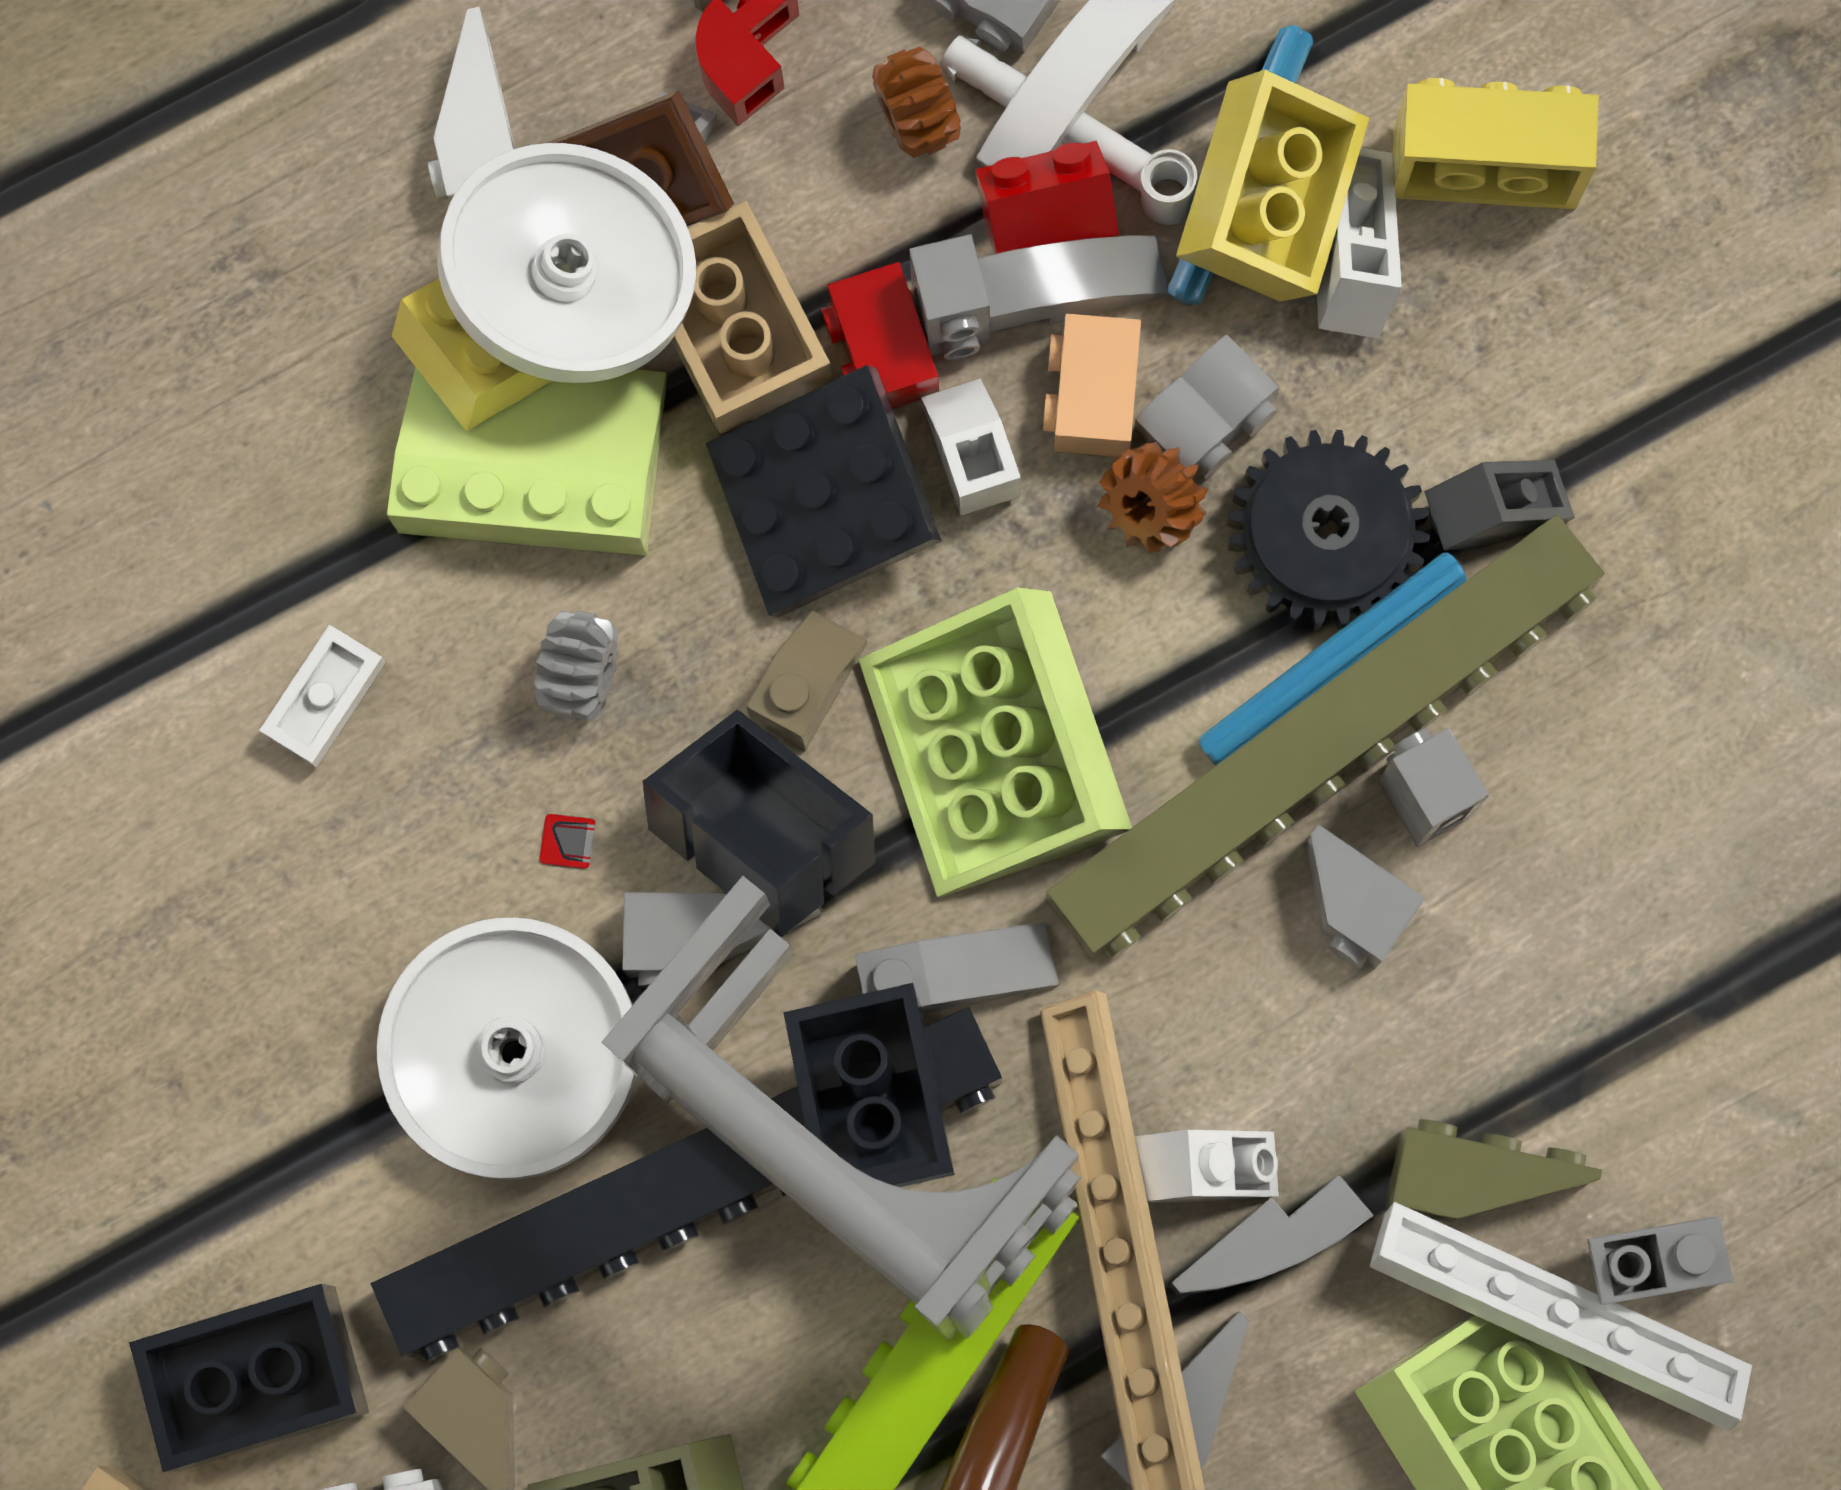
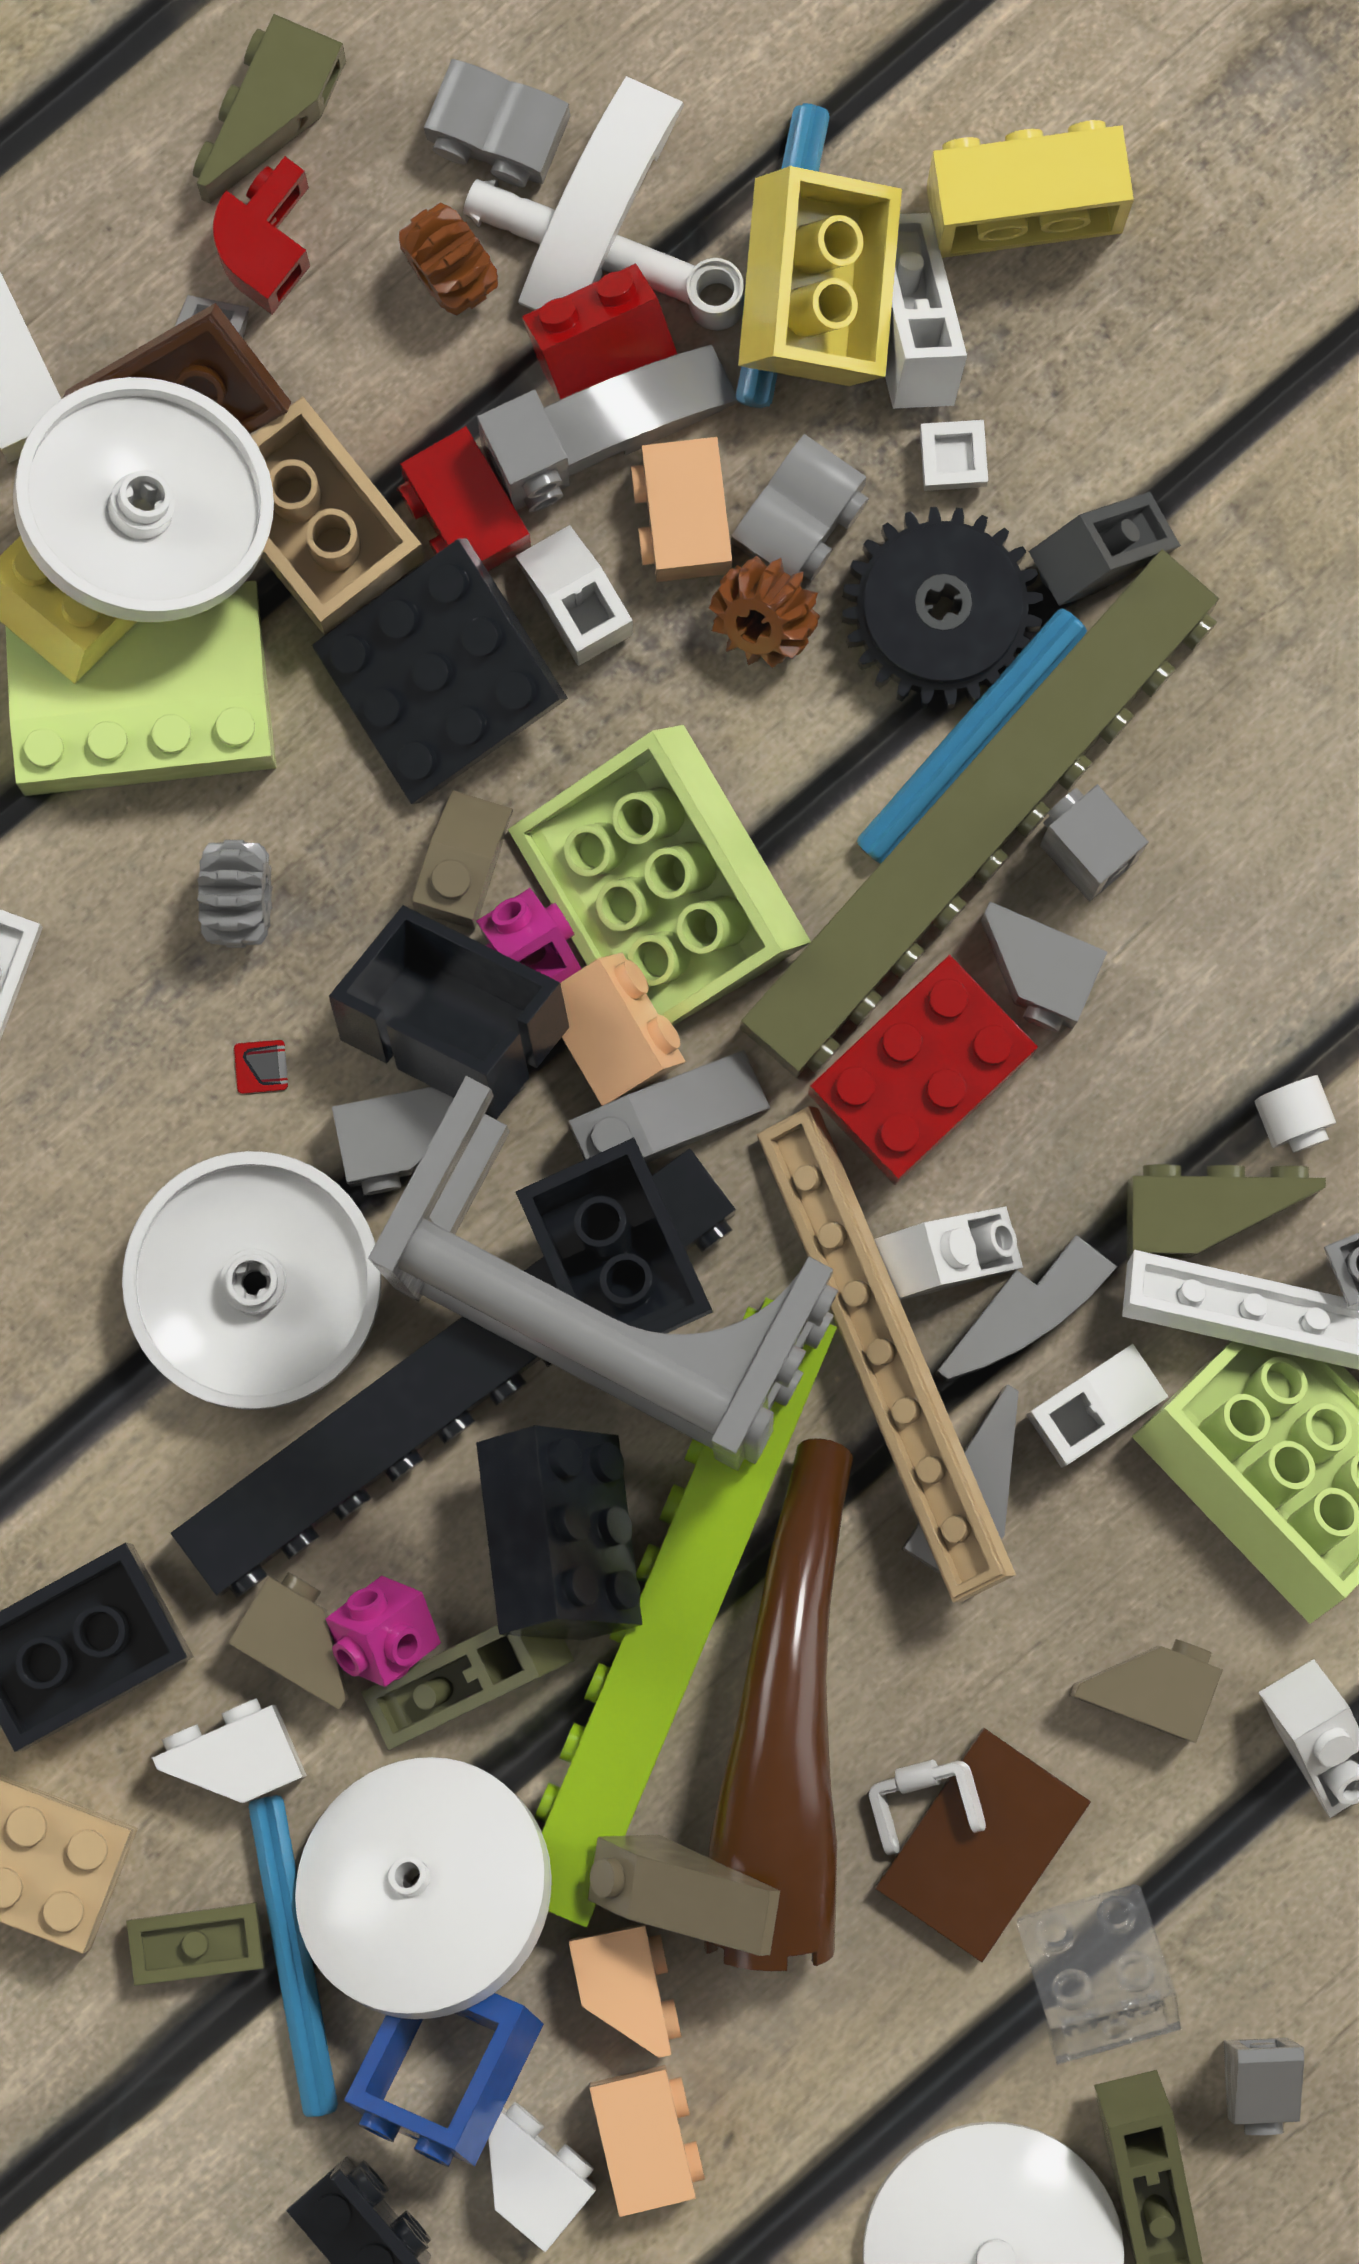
camera: 20 degrees left, 5 degrees up
(558, 1428) = (382, 1631): none -> dark pink brick
(755, 1367) = (559, 1533): none -> black brick
(858, 765) = (531, 935): none -> dark pink brick
(922, 874) = (616, 1029): none -> light nougat brick
(1217, 977) = (922, 1069): none -> red brick
(1325, 1352) = (1097, 1405): none -> white slope
(1369, 386) = (953, 455): none -> white plate
(1584, 1099) = (1296, 1114): none -> white plate

